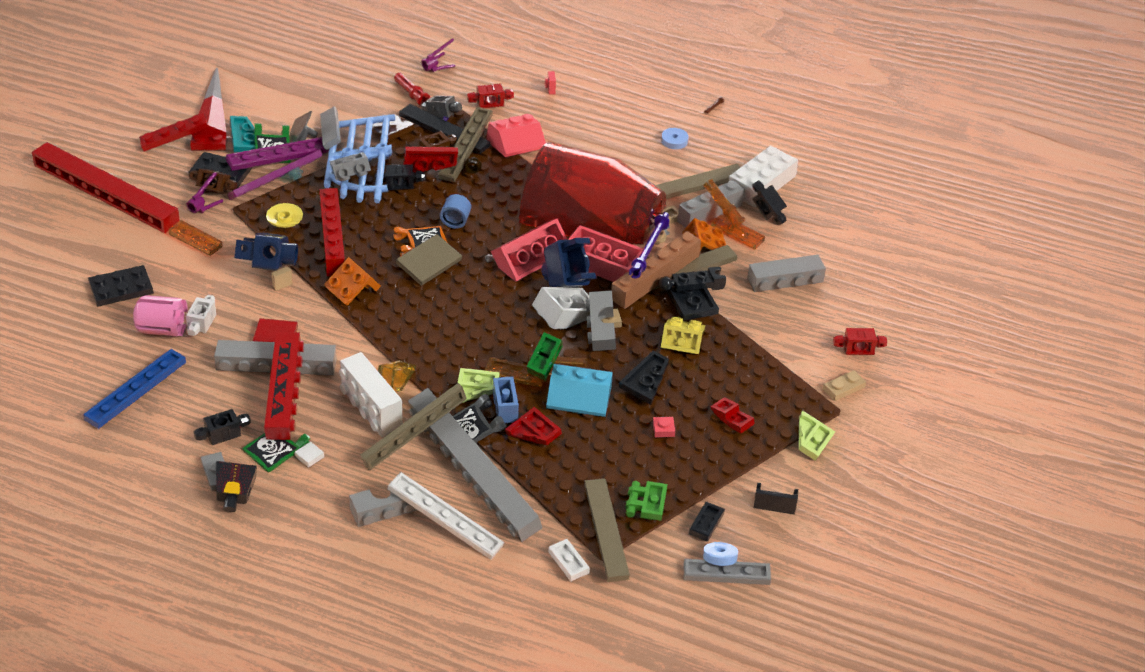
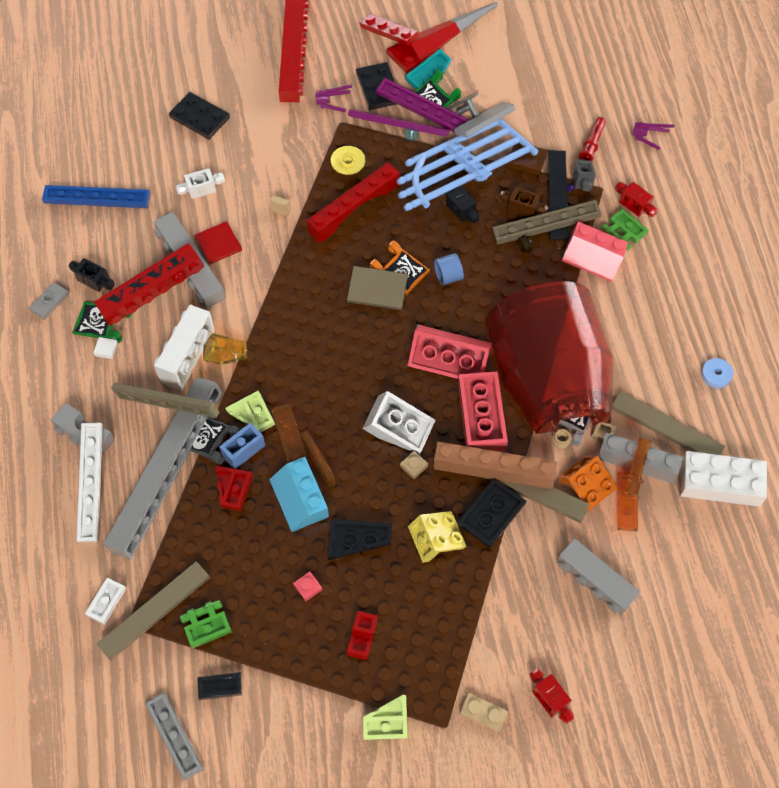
camera: 60 degrees right, 20 degrees up
(160, 315) = (173, 160): bright pink cylinder -> none
(195, 237) = (284, 123): clear orange plate -> none
(224, 182) = (358, 92): reddish brown piece -> none
(234, 483) = (33, 320): black torso -> none
(259, 251) = (296, 173): dark blue piece -> none
(349, 281) = (310, 251): orange bracket -> none
(350, 166) = (429, 163): light grey plate -> none
(430, 157) = (494, 209): red wing -> none
(506, 111) = (626, 225): none -> bright green plate
(544, 356) = (299, 445): green brick -> none
(550, 82) = (699, 231): coral plate -> none
(567, 263) = (432, 405): dark blue piece -> none
(602, 334) = (402, 448): light grey arch -> none
(639, 265) = (466, 449): dark purple bar -> none
(694, 280) = (507, 504): black plate -> none
(720, 553) = (190, 711): light blue piece -> none
(769, 202) = (681, 506): black piece -> none
(775, 501) = (286, 730): black hinge -> none

